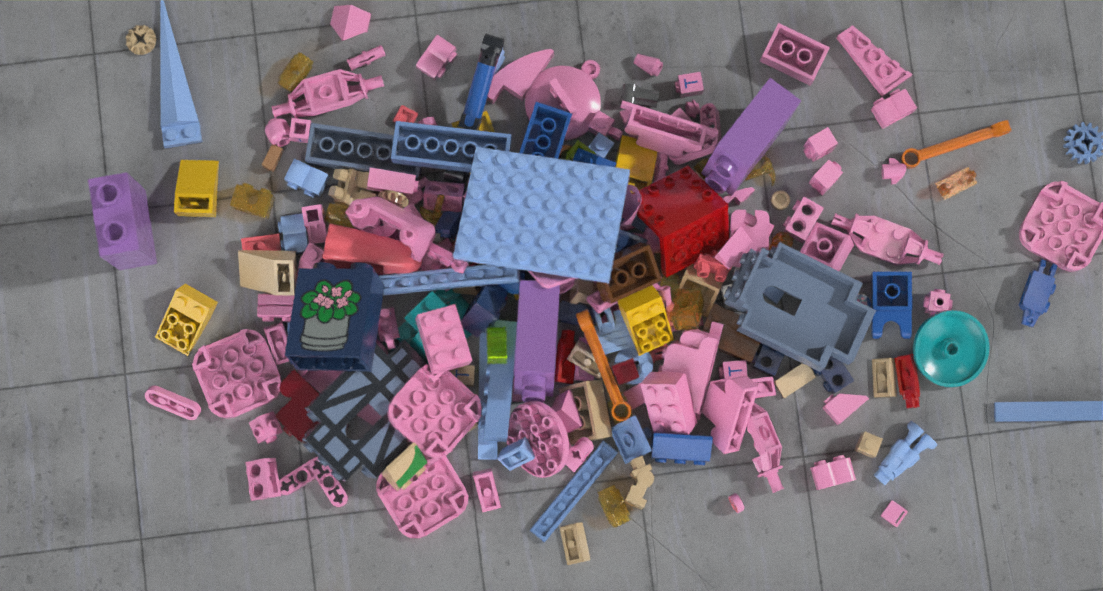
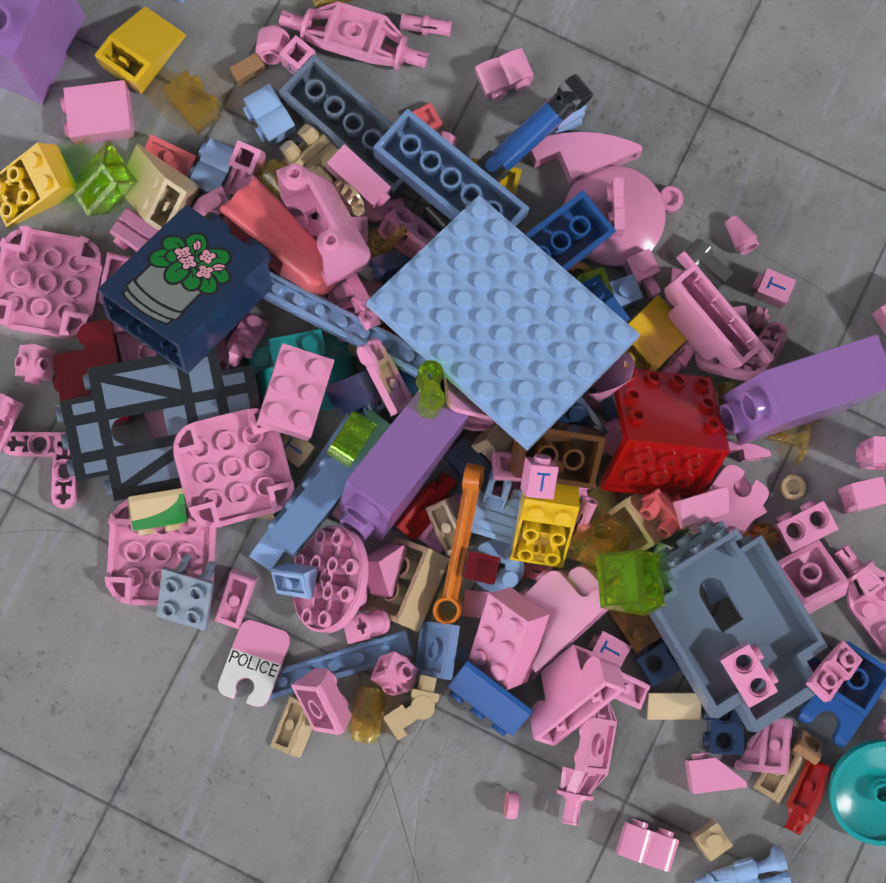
camera: 30 degrees right, 0 degrees up
(197, 246) = (98, 112): none -> bright pink brick
(231, 287) = (103, 182): none -> clear neon green slope
(457, 508) = (186, 597): none -> sand blue plate
(492, 293) = (384, 375): none -> hinge
(523, 516) = (255, 656): none -> piece
(527, 284) = (430, 389): none -> clear neon green axle
(582, 515) = (322, 701): none -> bright pink slope
(614, 470) = (394, 673): none -> bright pink brick
(625, 294) = (539, 477): none -> bright pink brick
(720, 321) = (630, 581): none -> clear neon green slope
(823, 333) = (743, 676): none -> bright pink brick
(867, 367) = (768, 749): none -> bright pink wing
(875, 295) = (833, 670): none -> bright pink slope
(890, 351) = (808, 746): none -> medium nougat tile

